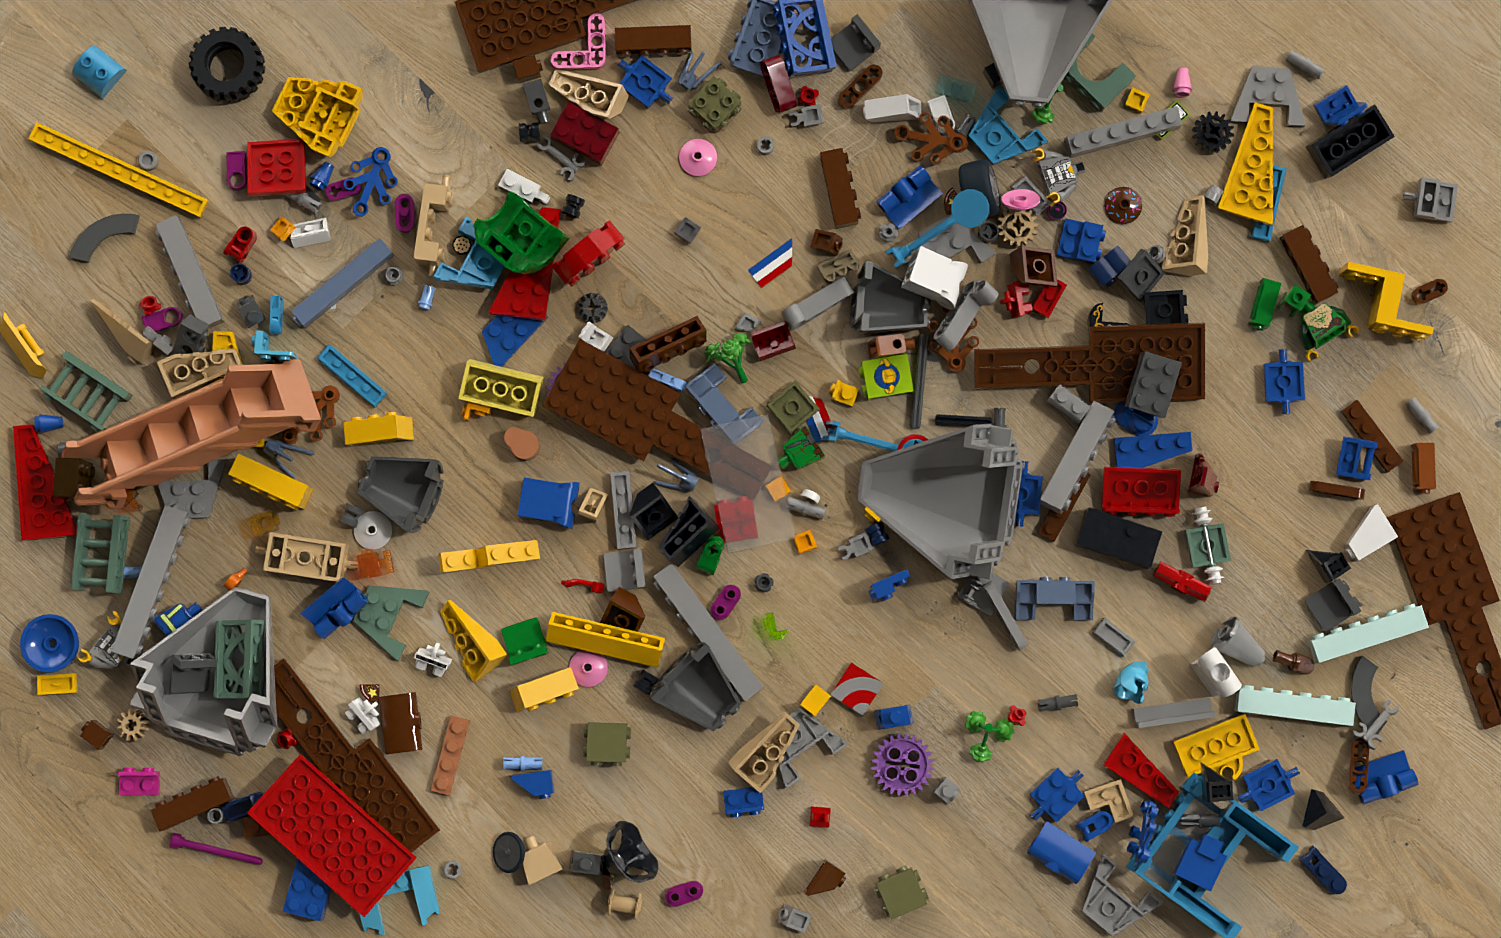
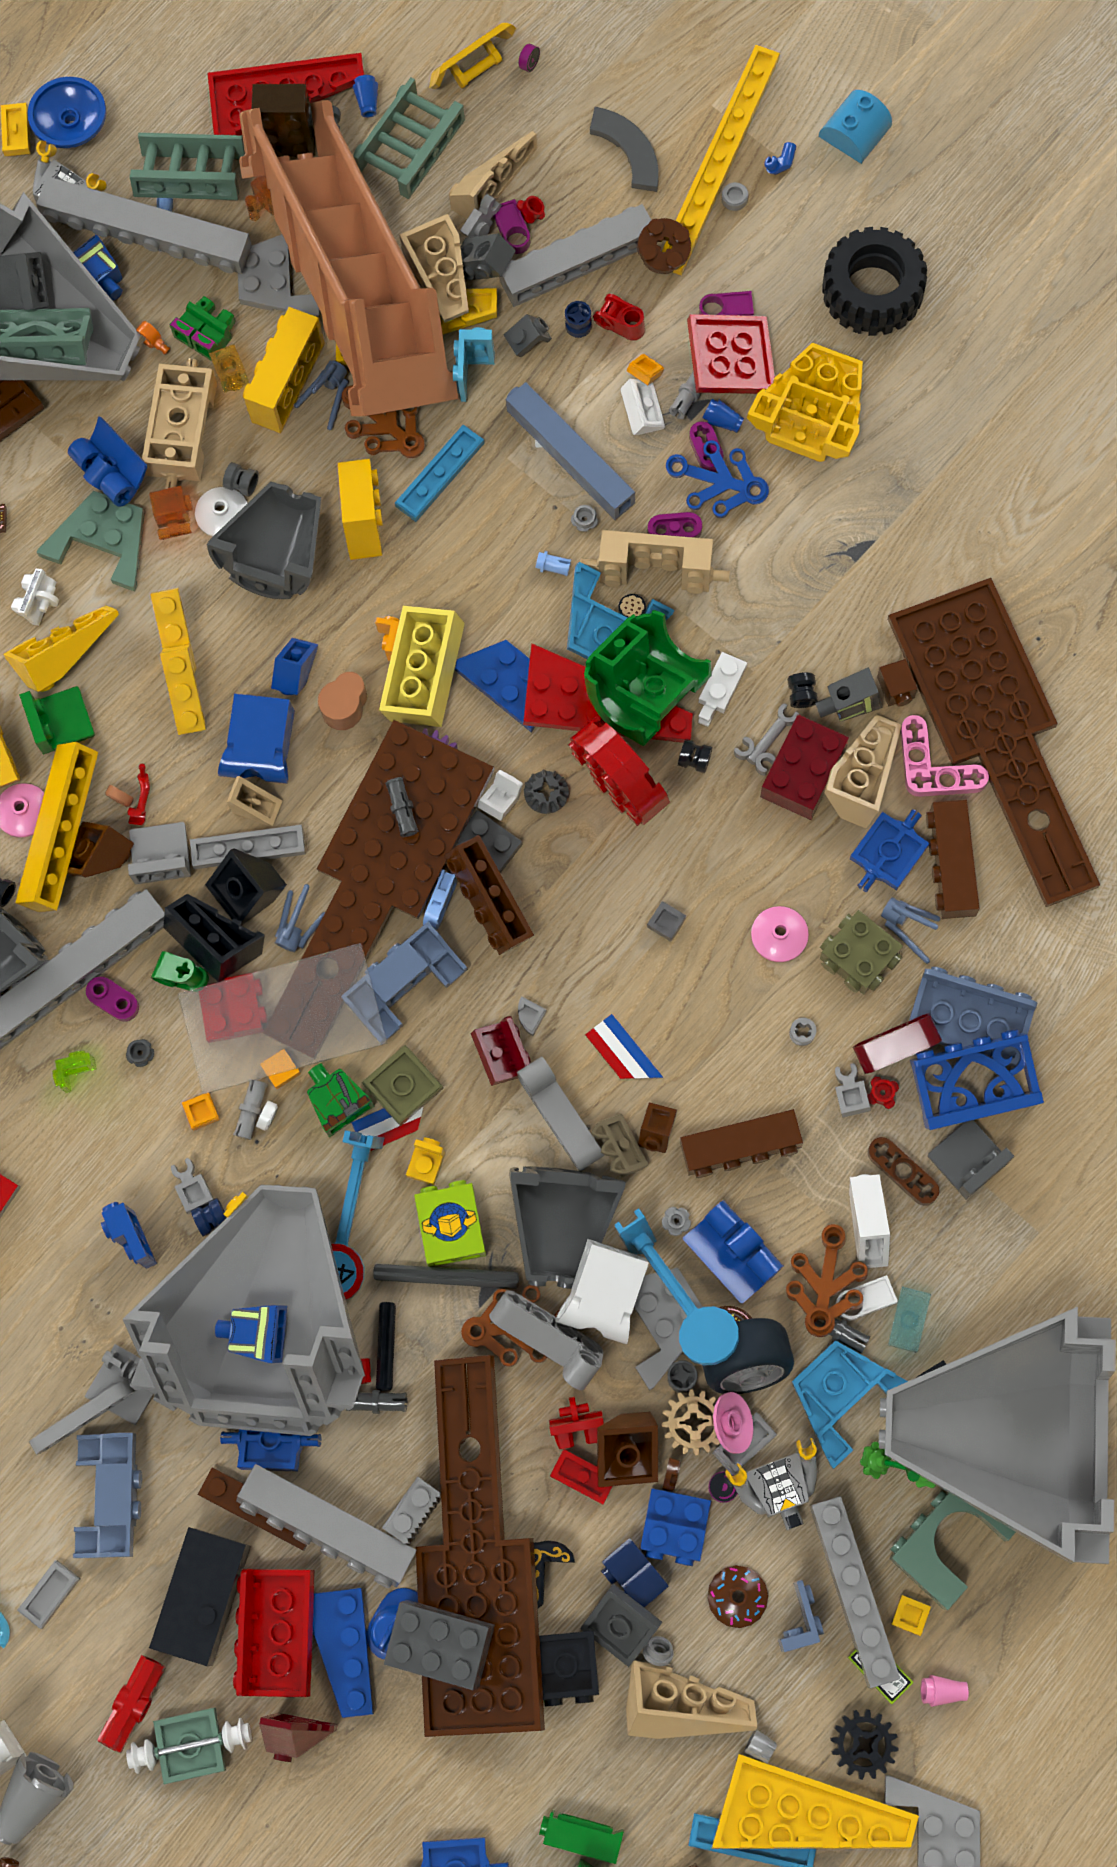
camera: 95 degrees right, 10 degrees down
(25, 303) = (529, 57): none -> magenta tile
(123, 124) = (779, 164): none -> blue arm
(188, 199) = (672, 258): none -> reddish brown plate
(224, 547) = (201, 329): none -> green hips
(276, 314) = (522, 367): dark azure piece -> none
(494, 477) = (293, 666): none -> blue slope
(583, 598) = (119, 796): none -> nougat tile
(607, 399) = (401, 807): none -> dark grey pin
(730, 350) = (480, 980): bright green plant -> none
(883, 346) = (496, 1213): dark orange torso -> none
(955, 501) = (255, 1332): none -> blue torso
(1048, 242) = (671, 1475): none -> reddish brown tile
(1152, 166) = (797, 1637): none -> sand blue bracket

